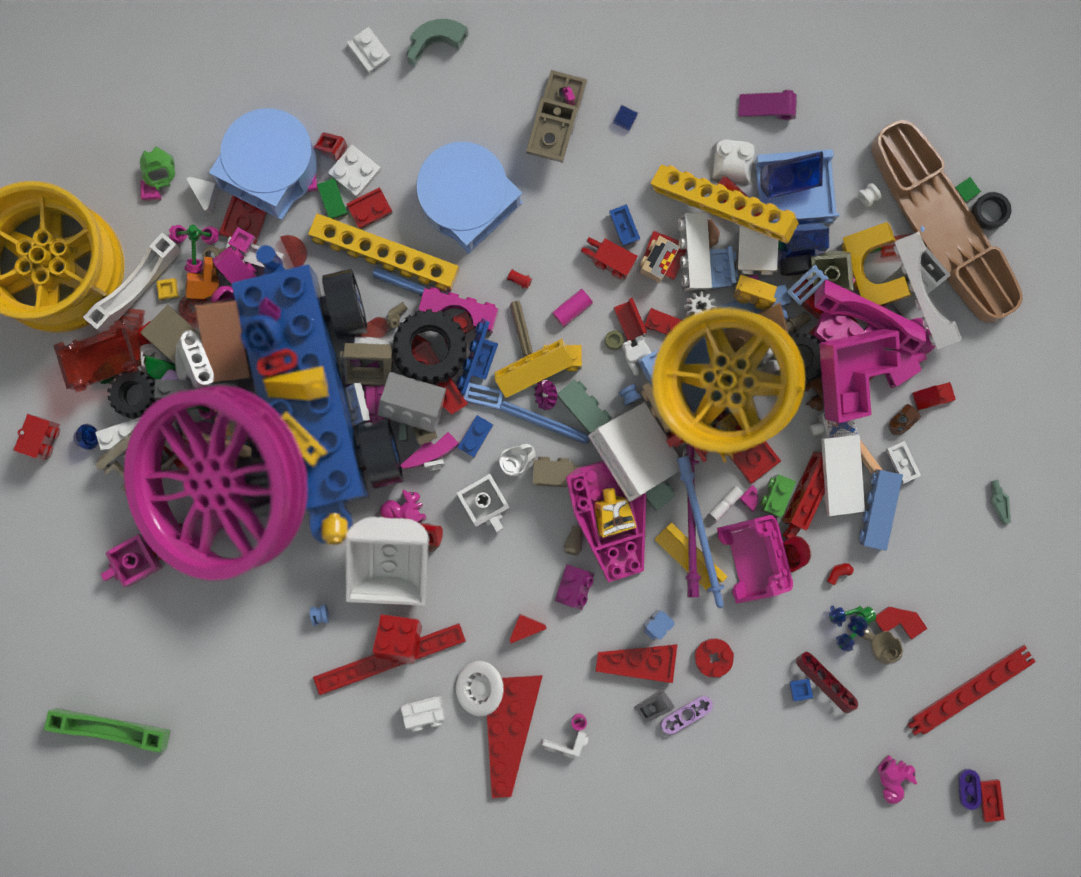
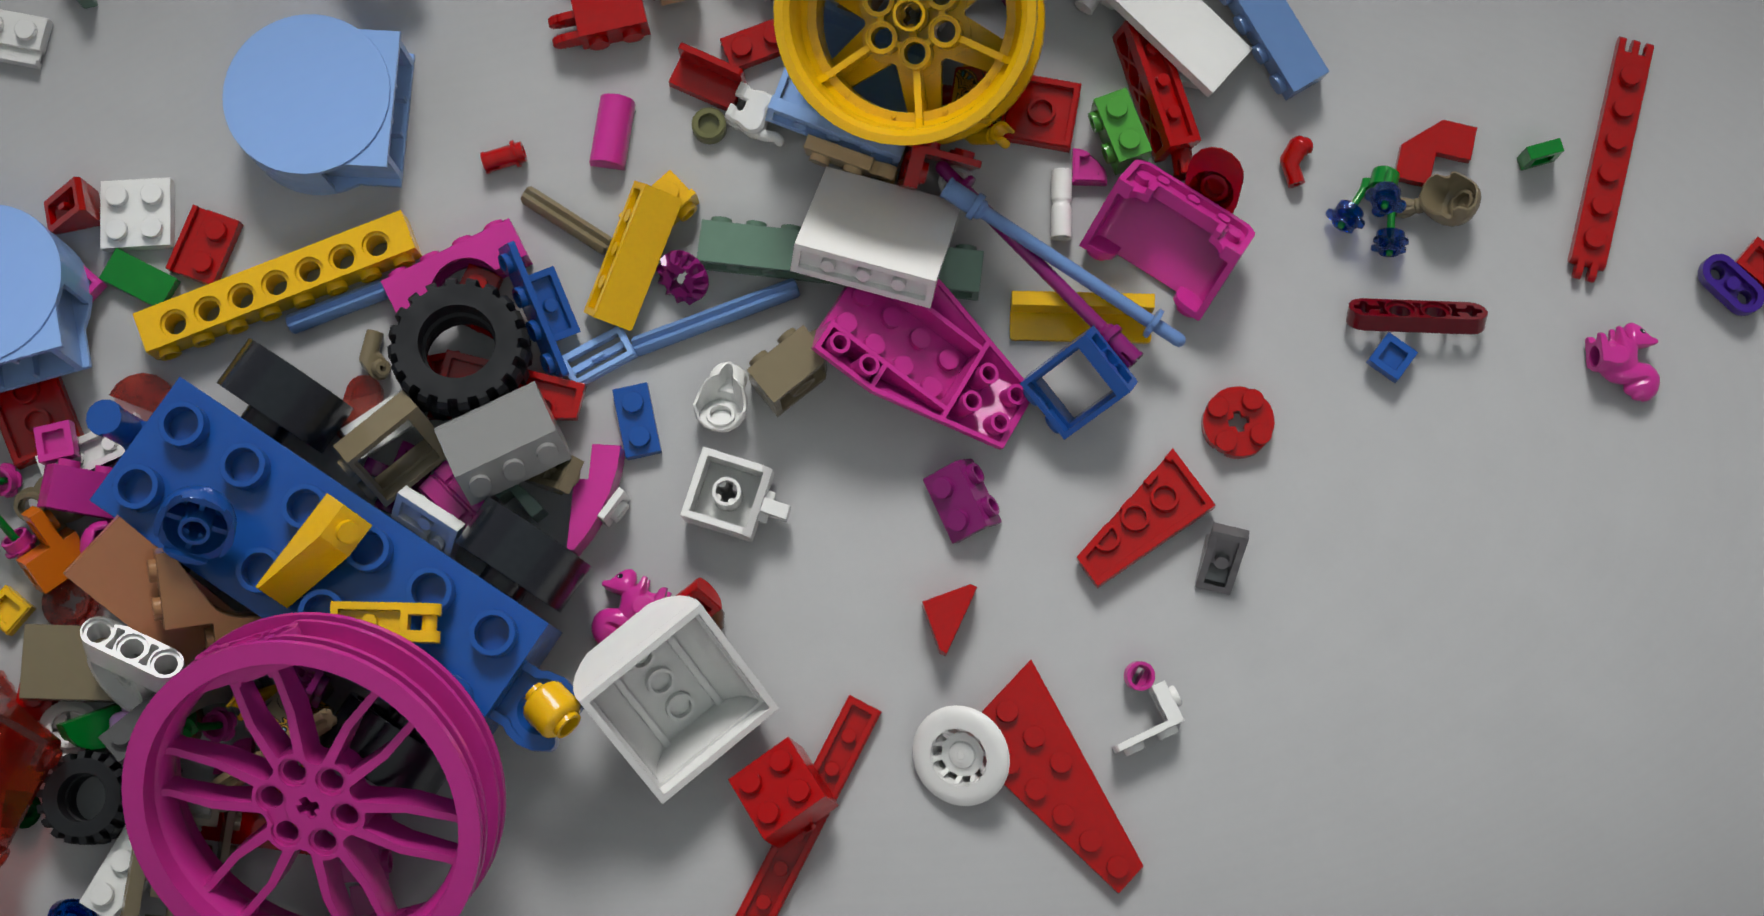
camera: 40 degrees left, 5 degrees down
(231, 359) = (183, 603): none -> medium nougat arch
(269, 309) = (170, 481): magenta tile -> none
(278, 362) = (253, 543): red plate -> none
(319, 615) = (643, 860): medium blue wheel -> none
(422, 713) = (914, 864): white brick -> none
(573, 543) = (904, 438): dark tan cone -> none
(613, 514) = (923, 346): yellow torso -> none
(630, 395) = (798, 176): medium blue wheel -> none
(658, 625) = (1123, 442): medium blue brick -> none
(679, 588) = (1105, 363): none -> blue window
(696, 702) = (1291, 509): lavender beam -> none
(942, 663) = (1540, 154): none -> green tile

